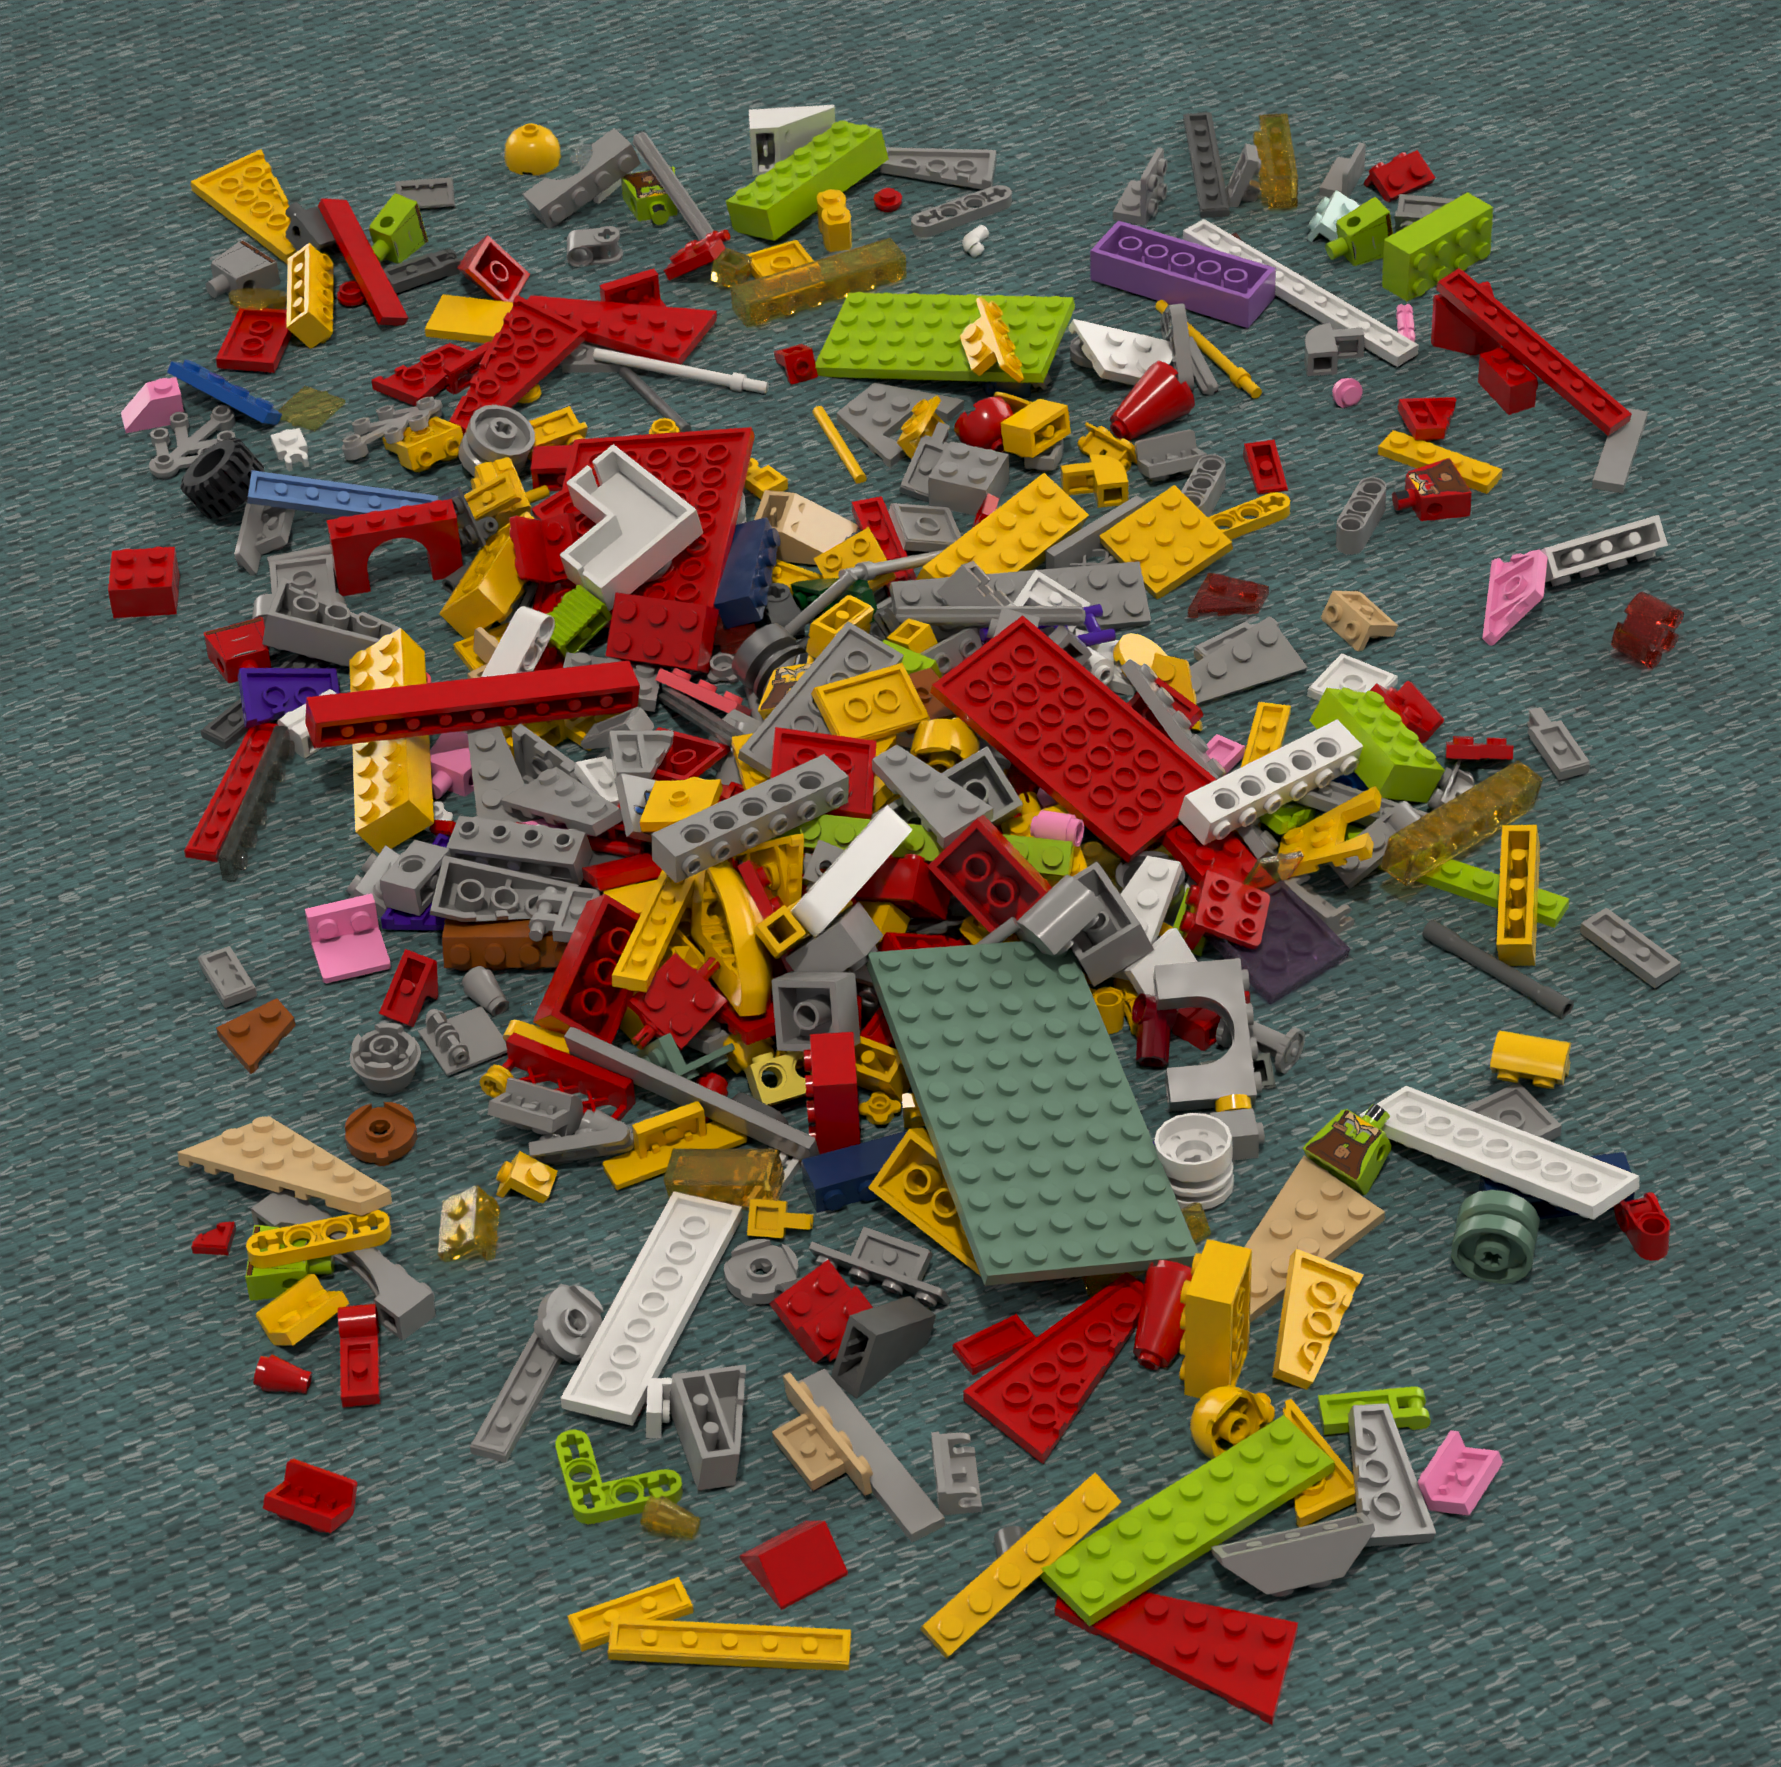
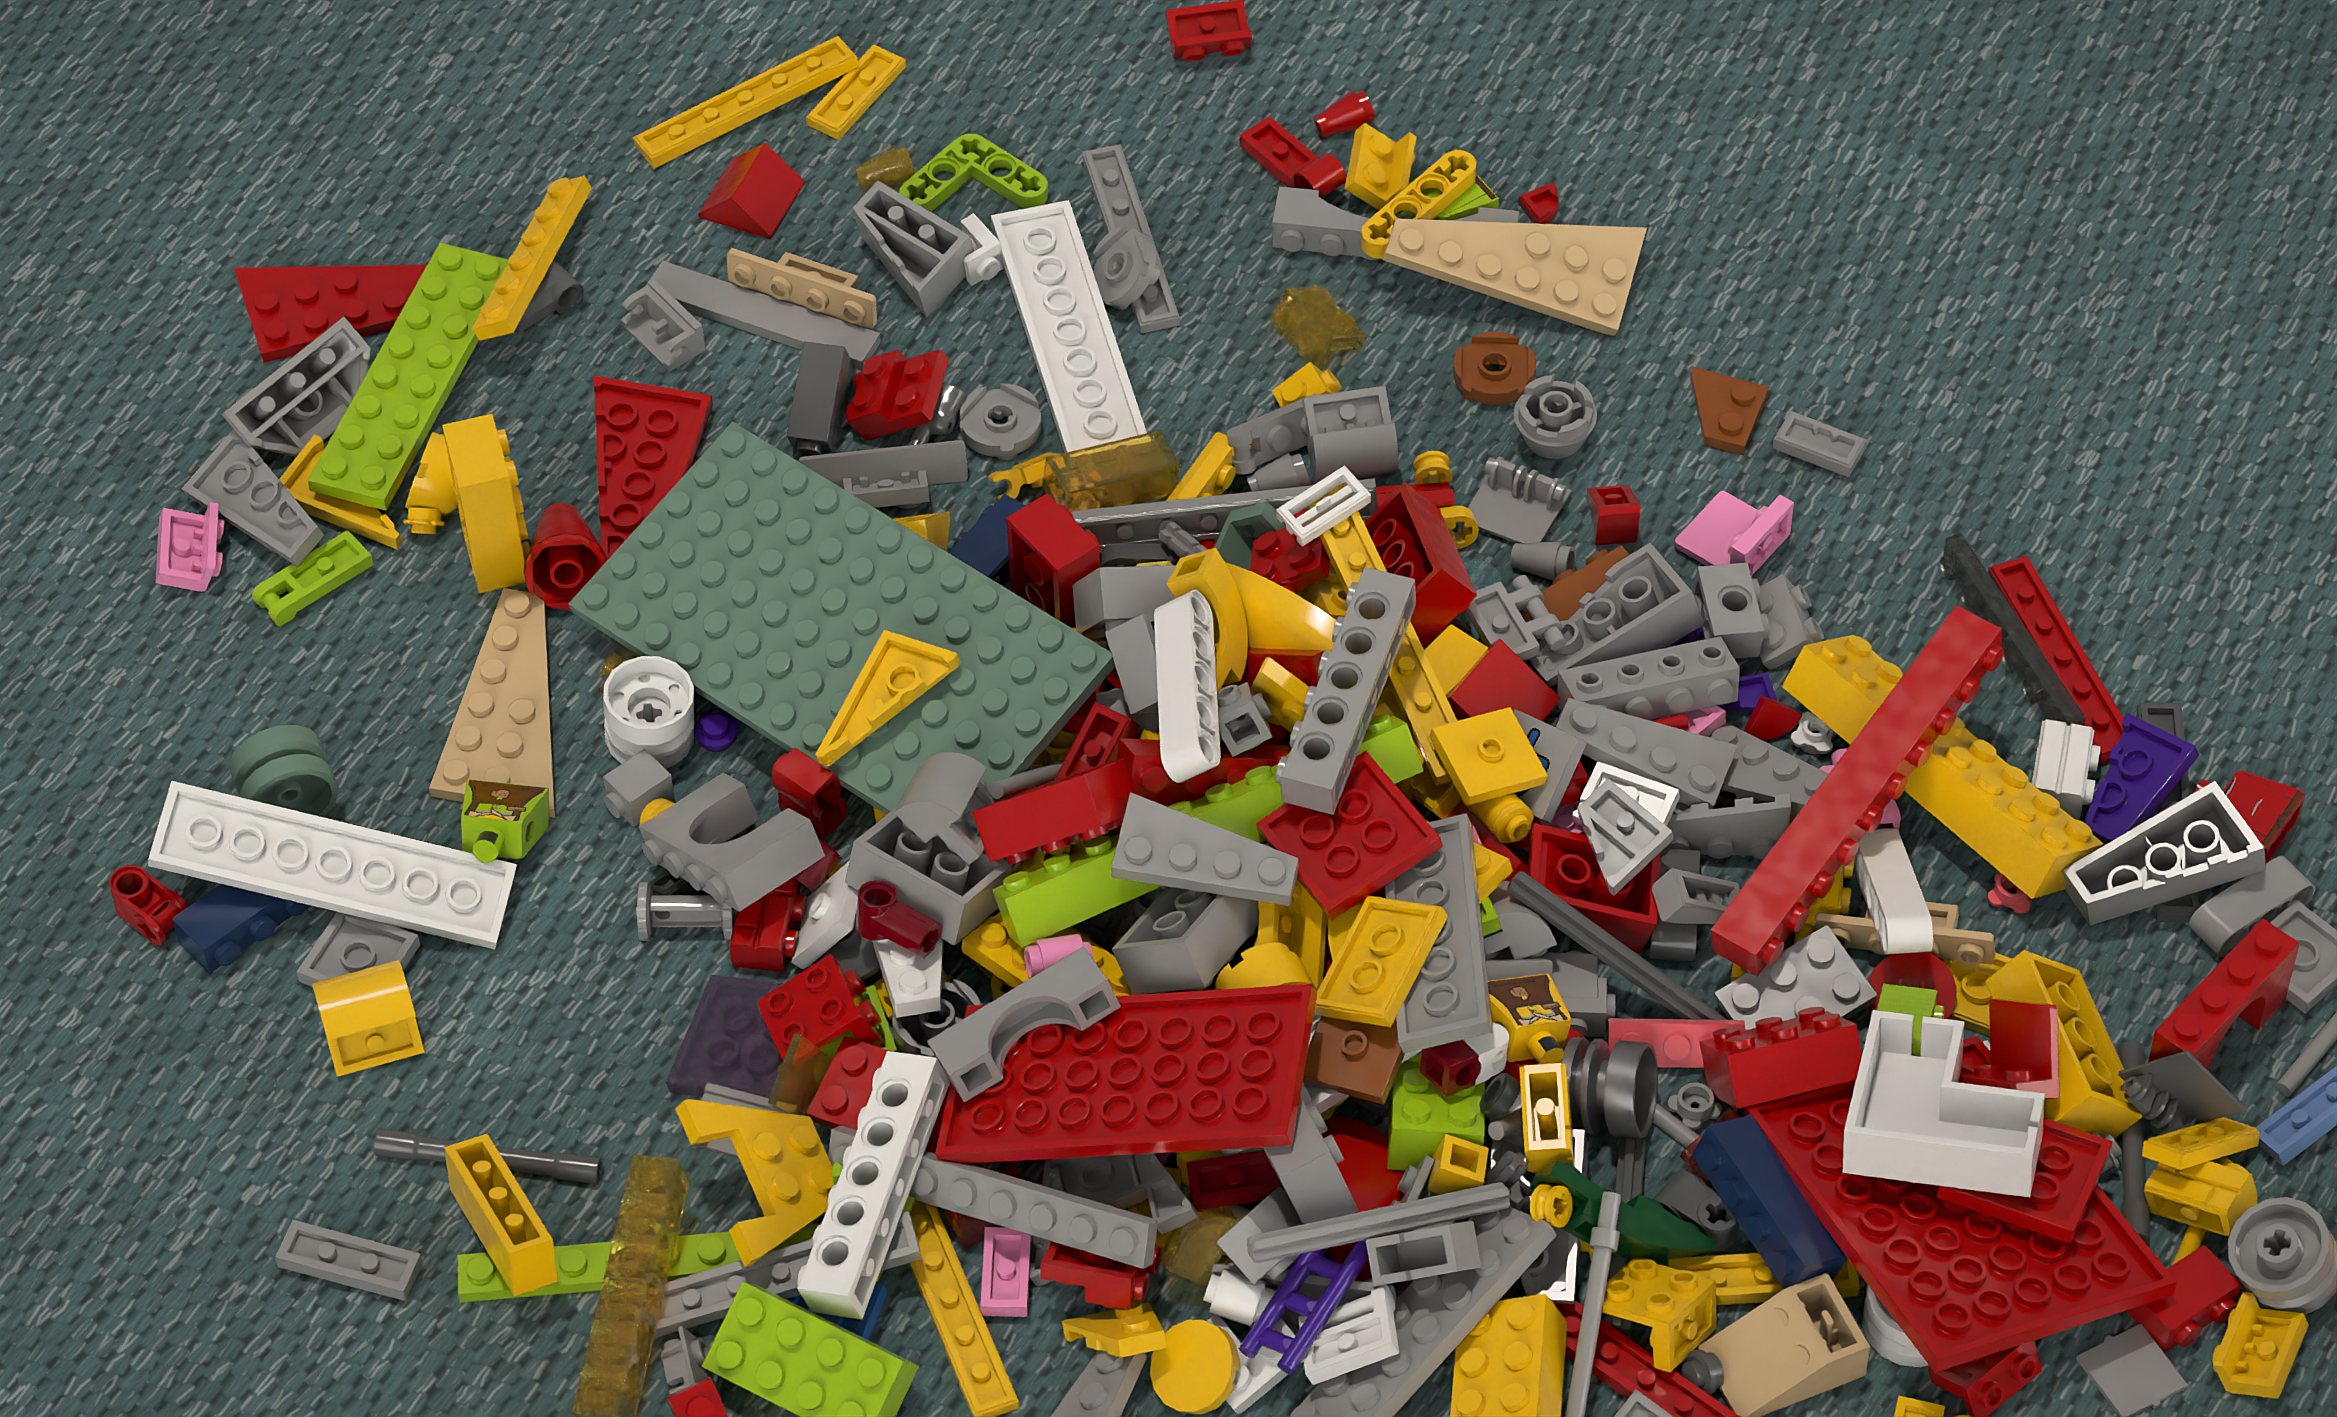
camera: 145 degrees right, 10 degrees up
(643, 963) = (1333, 517): none -> white tile
(730, 1067) = (1179, 540): none -> light grey axle
(821, 602) = (1631, 1169): light grey bar -> none
(882, 591) = (1551, 1205): none -> yellow bush
(1037, 1021) = (891, 680): none -> yellow wing
(1074, 786) = (1064, 993): none -> light grey arch
(1128, 1046) = (809, 791): none -> red brick
(1143, 900) = (884, 917): none -> dark red piece
(1310, 1316) = (432, 635): yellow wing -> none
(1379, 831) = (700, 1240): light grey plate -> none

